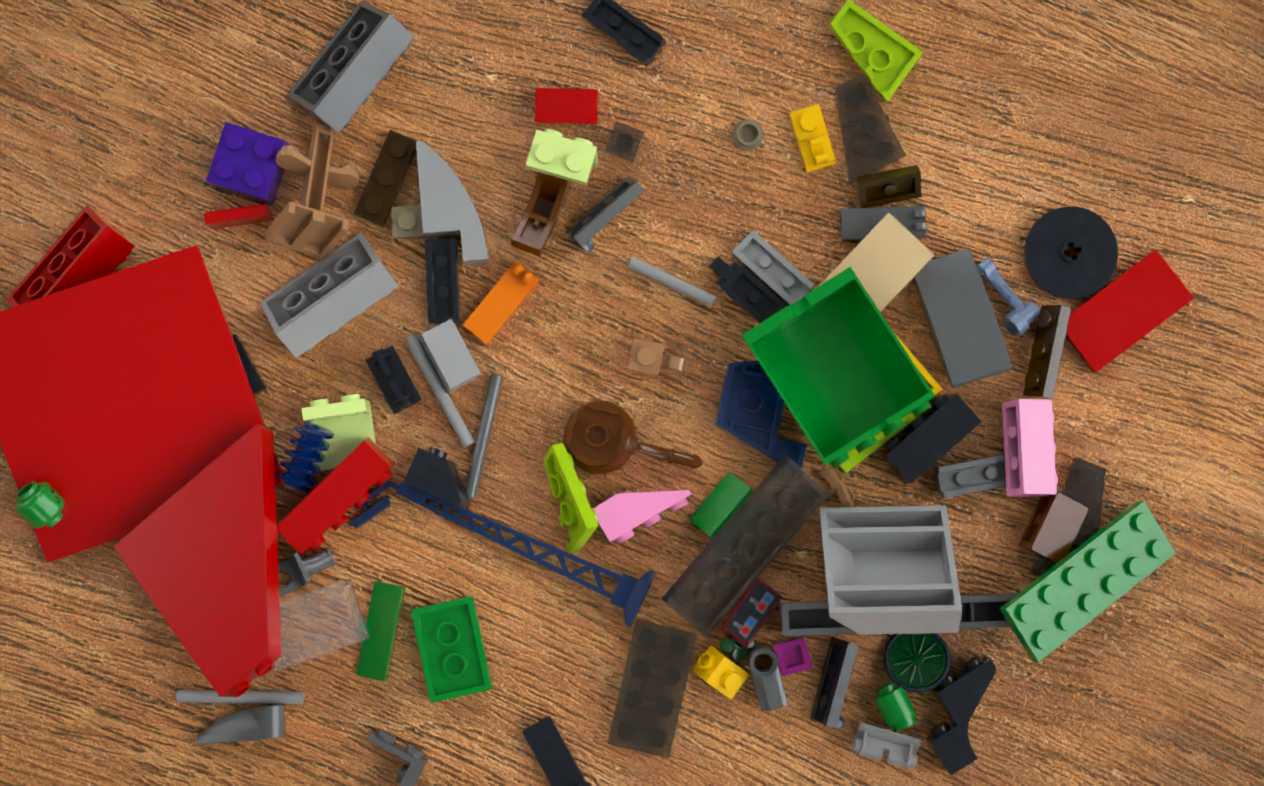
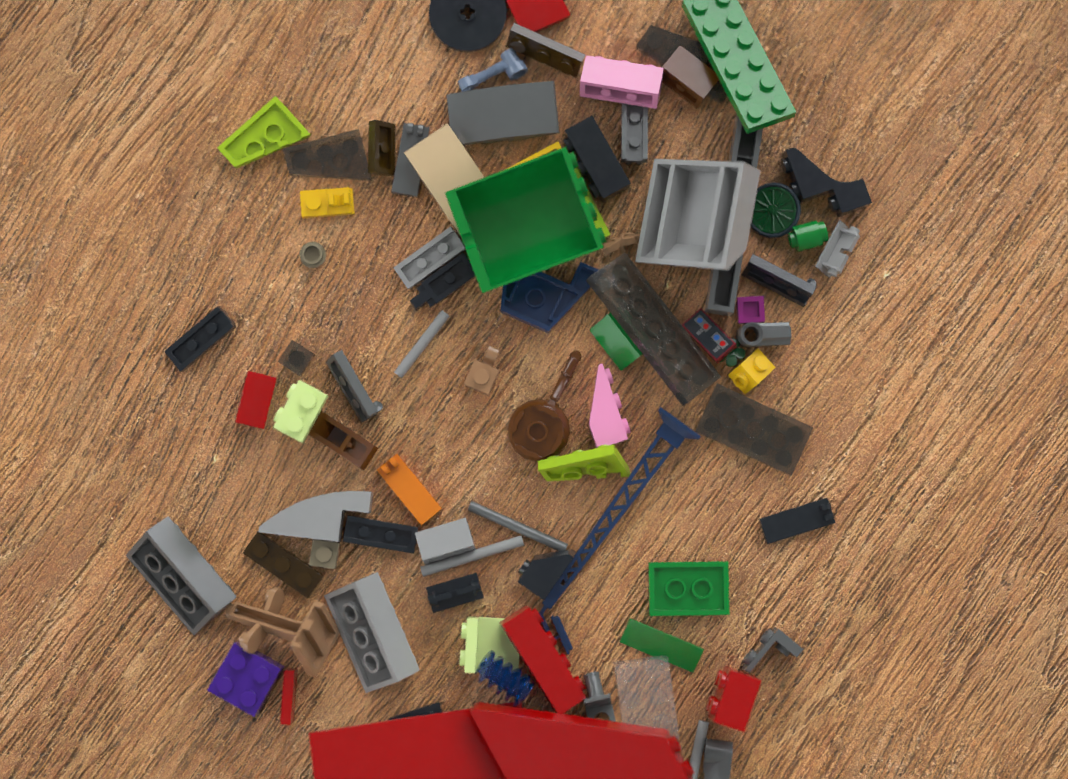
camera: 85 degrees left, 0 degrees up
(333, 726) = (733, 698): none -> red brick

